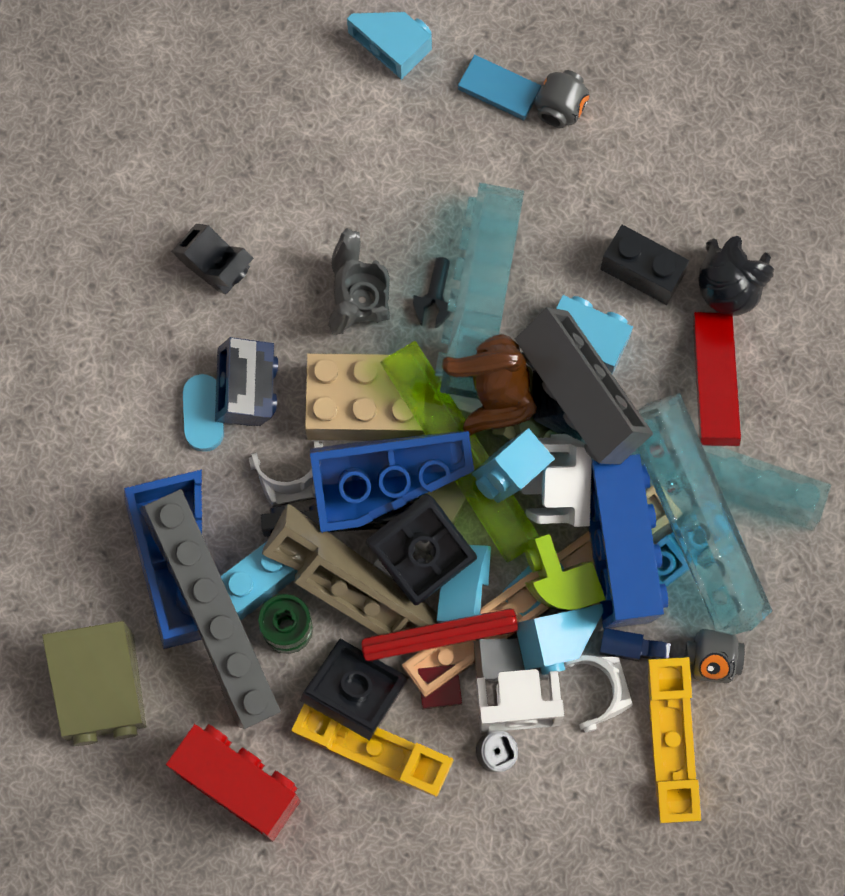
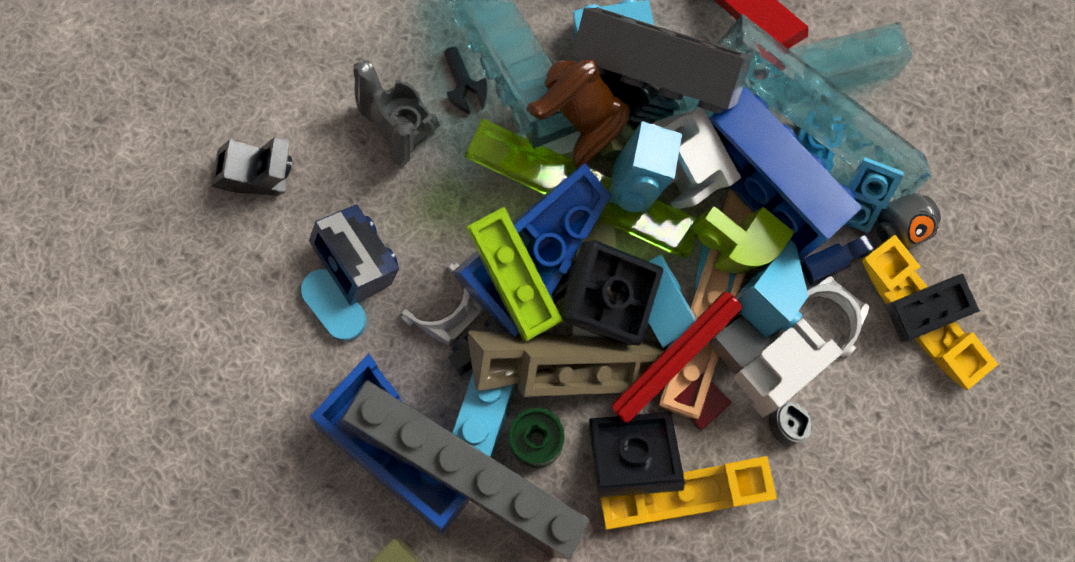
camera: 35 degrees left, 0 degrees up
(350, 482) = (513, 274): none -> lime tile
(354, 400) = (454, 197): tan brick -> none
(678, 737) = (932, 308): none -> black plate
(691, 610) = (873, 189): none -> medium azure slope

